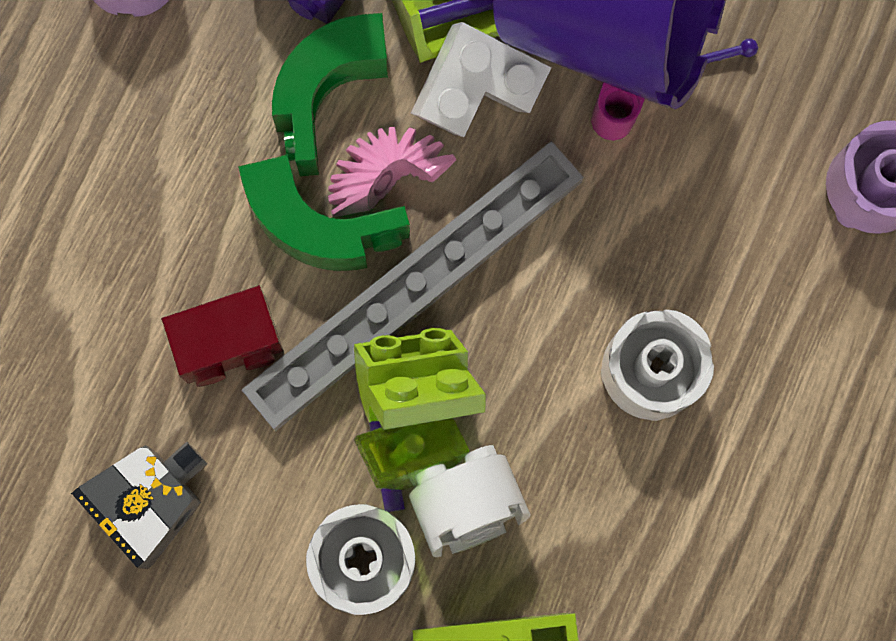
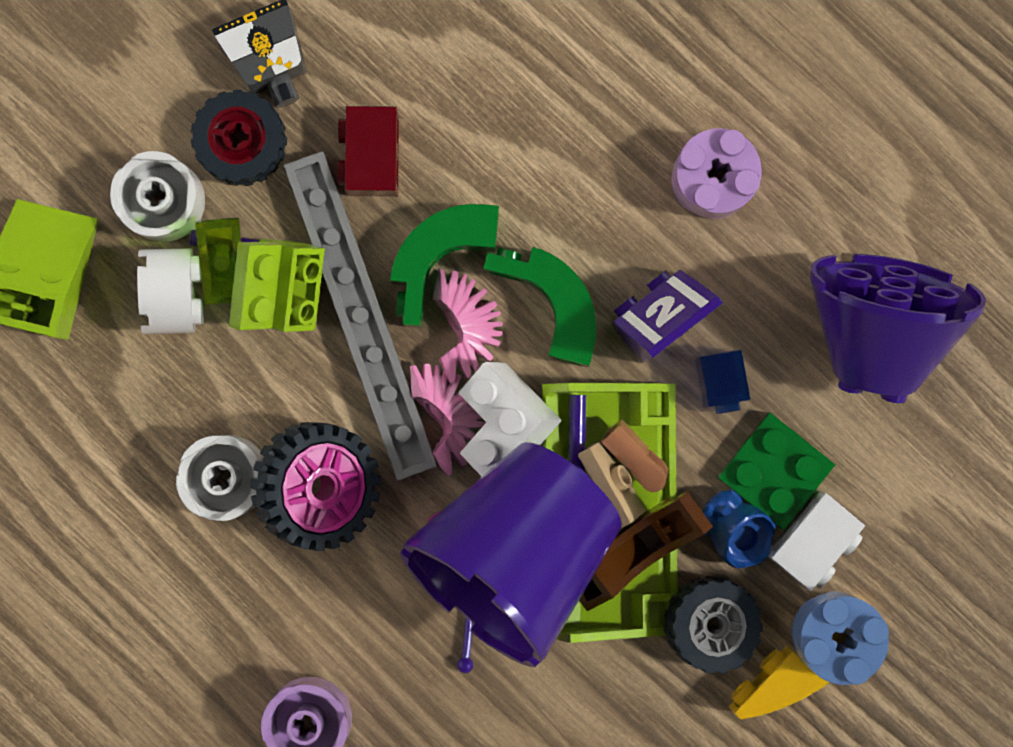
camera: 115 degrees right, 10 degrees up
(228, 489) = (252, 158): none -> black wheel
(485, 150) = (448, 410): none -> bright pink hair
(627, 254) = (287, 481): none -> wheel

